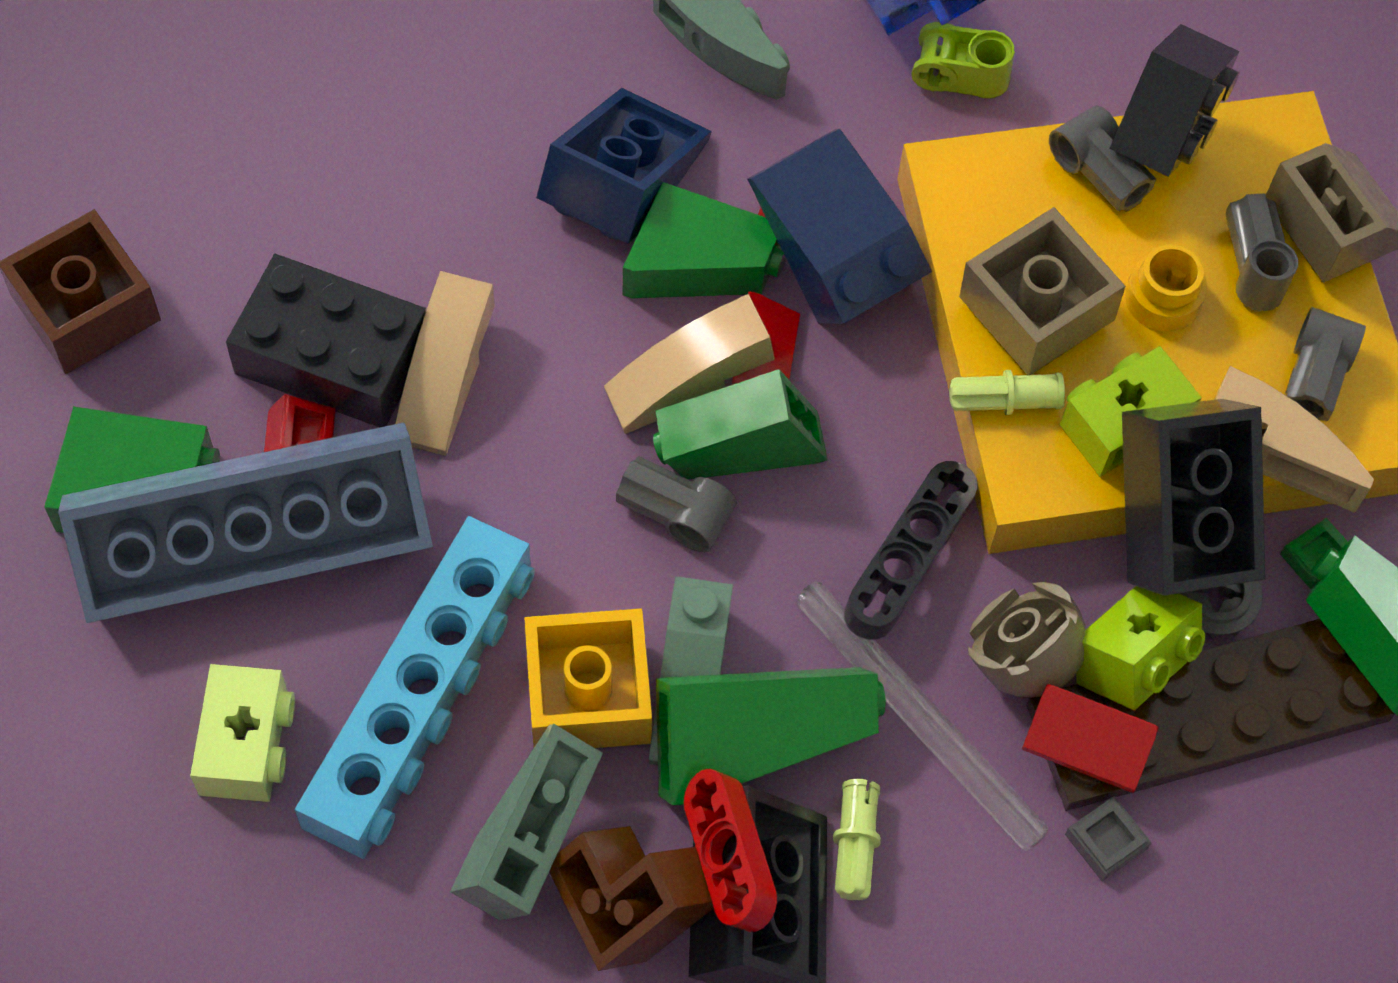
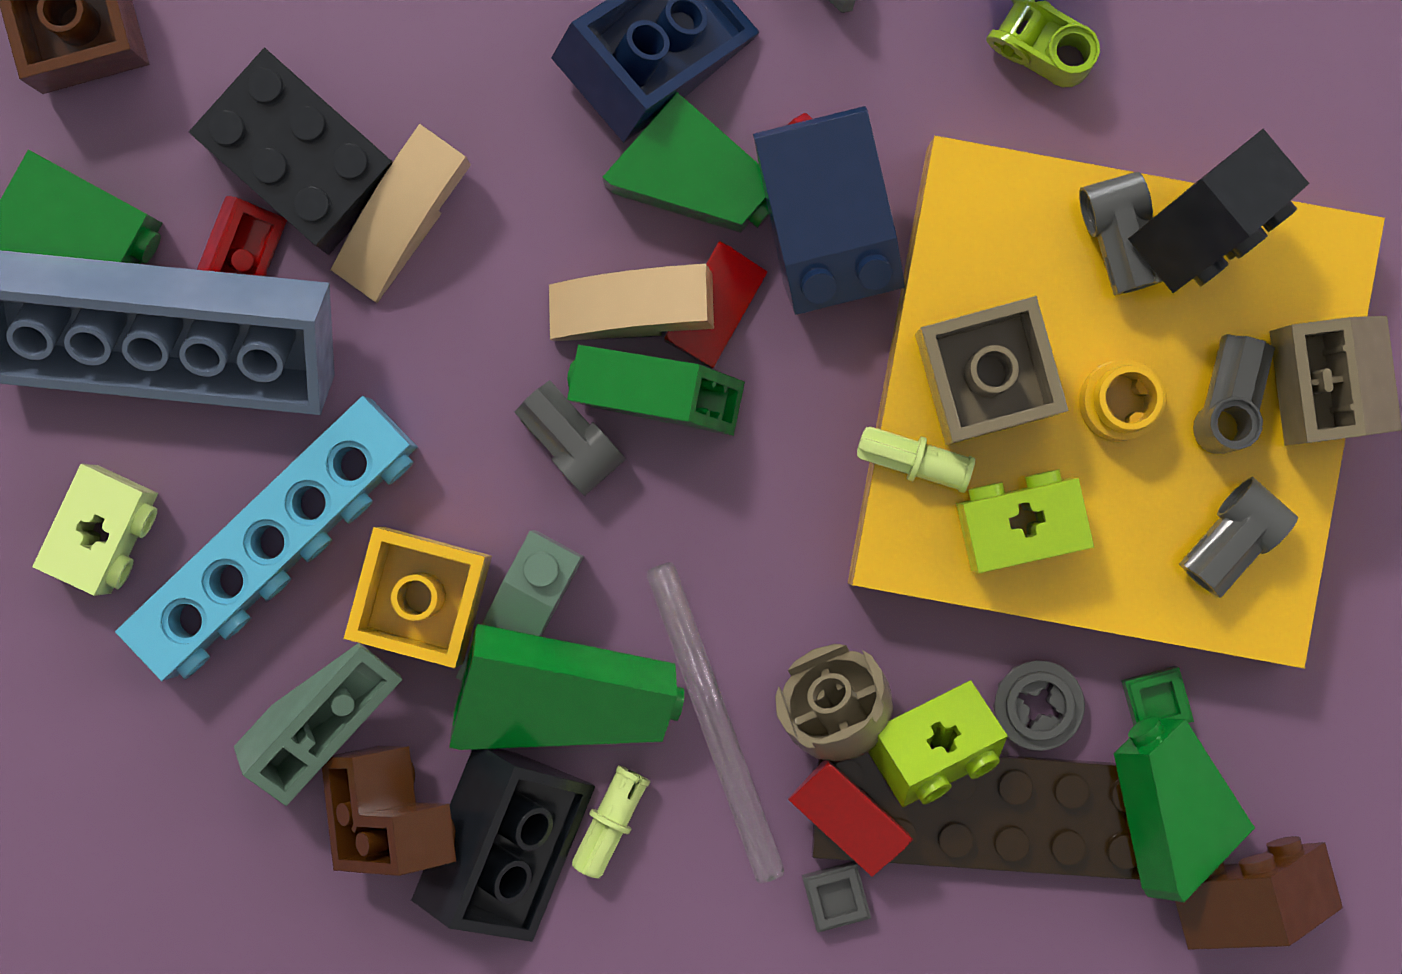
camera: 30 degrees right, 25 degrees up
(747, 866) = (482, 866): red beam -> none
(914, 550) = (775, 570): black beam -> none
(1193, 496) = (1041, 642): black brick -> none
(1299, 446) = (1161, 606): tan slope -> none

